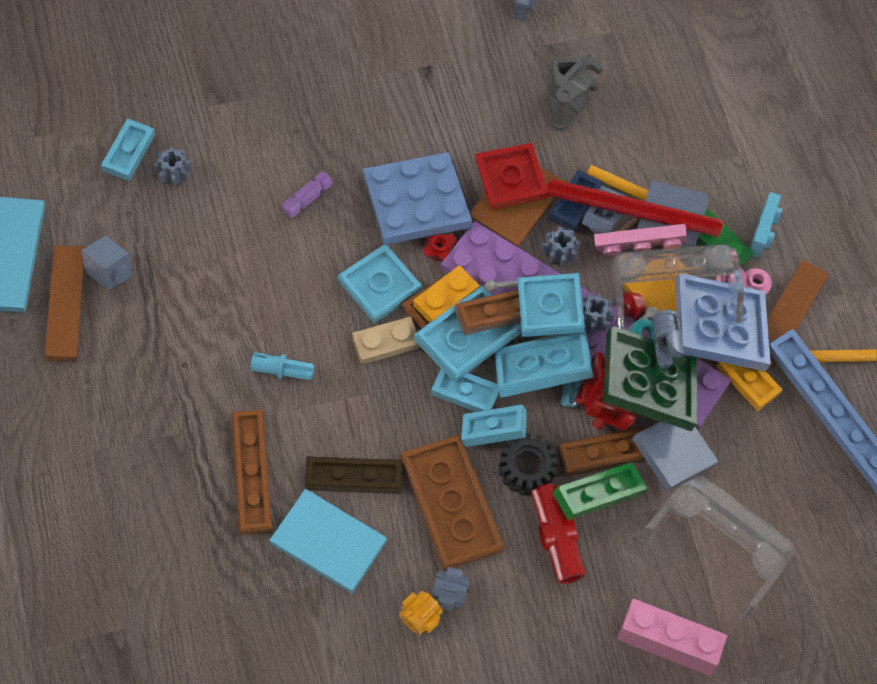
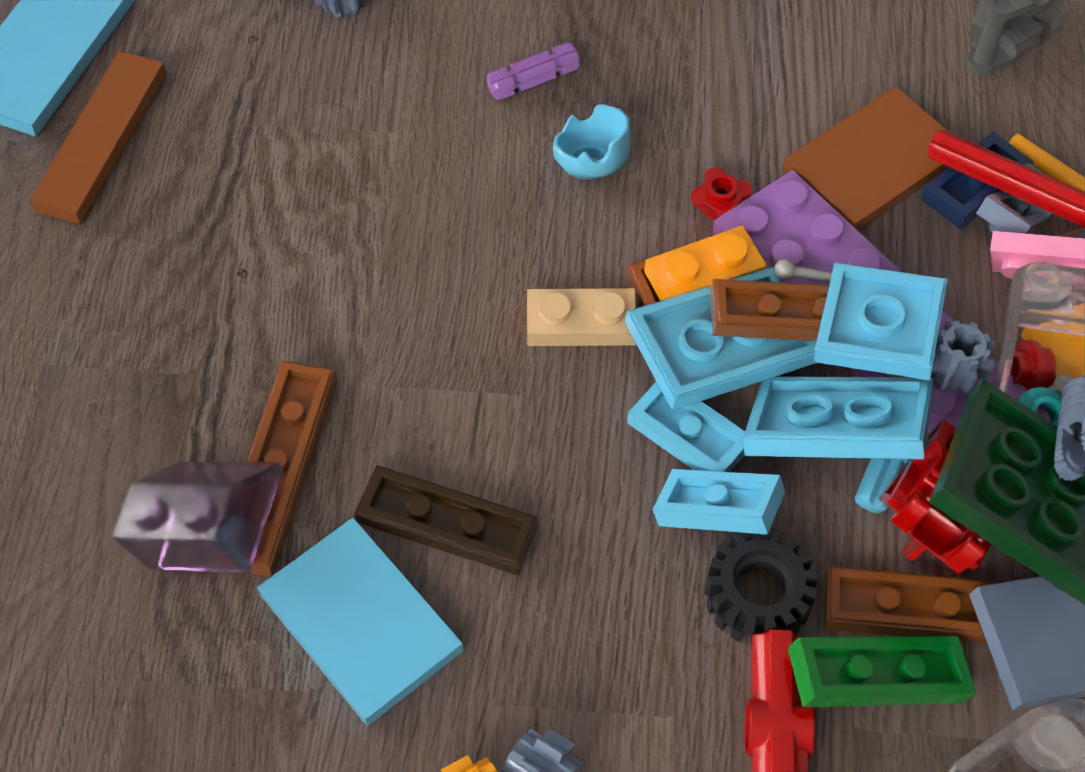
camera: 25 degrees right, 5 degrees down
(107, 262) = (180, 89): sand blue brick -> none
(226, 510) = (199, 515): none -> slope
(281, 366) = (391, 311): medium azure axle -> none
(360, 234) = (594, 145): none -> medium azure hair
(379, 283) = (602, 227): medium azure tile -> none
(417, 198) = (708, 116): medium blue plate -> none
(451, 502) = (602, 619): dark orange tile -> none
(511, 176) = (875, 113): red plate -> none
(561, 246) = (929, 241): sand blue gear -> none

